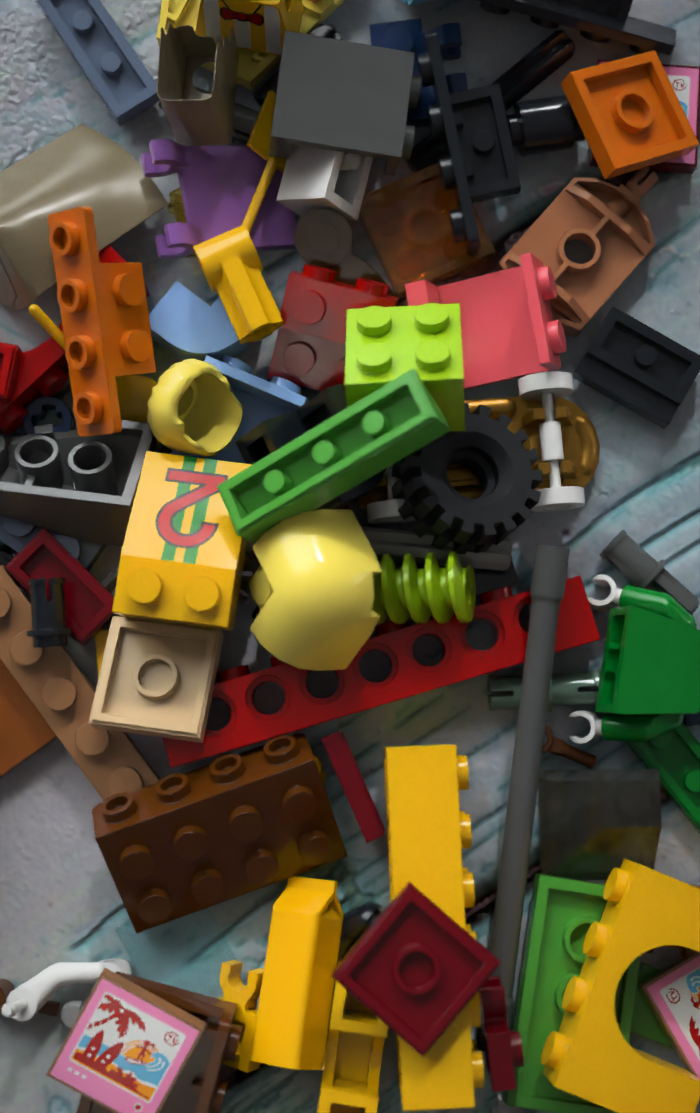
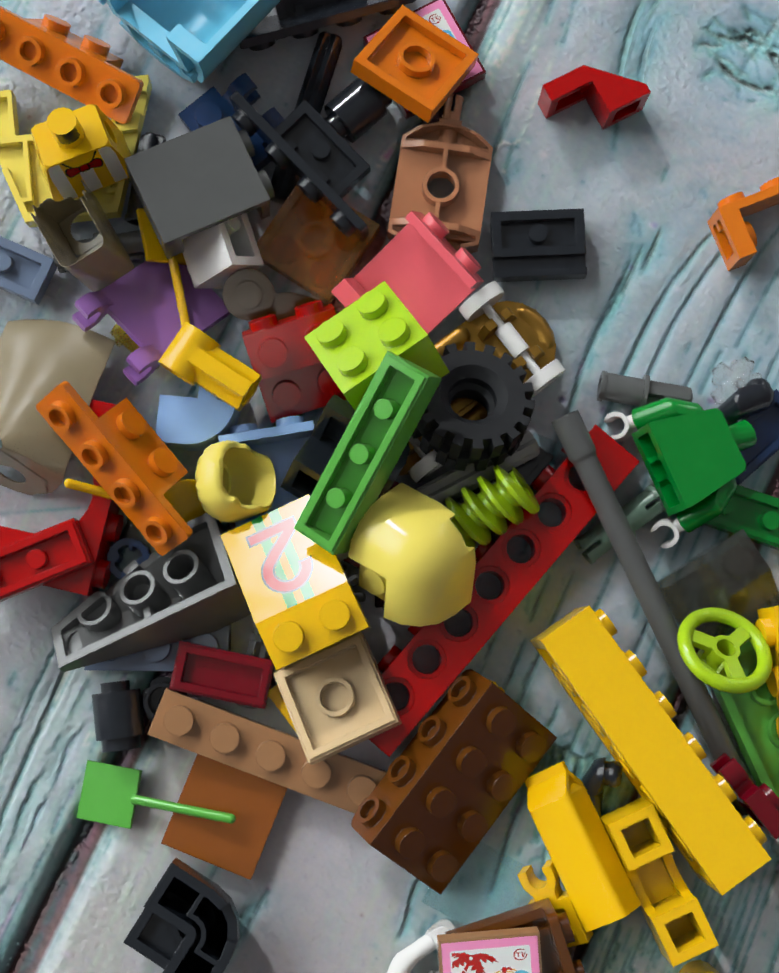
camera: 30 degrees left, 0 degrees up
(48, 618) = (227, 702): black pin -> none
(354, 786) = (529, 683): dark red tile -> none
(416, 968) = (666, 787): dark red tile -> none
(548, 881) = (718, 656): none -> lime piece
(559, 747) = (657, 558): reddish brown hand -> none

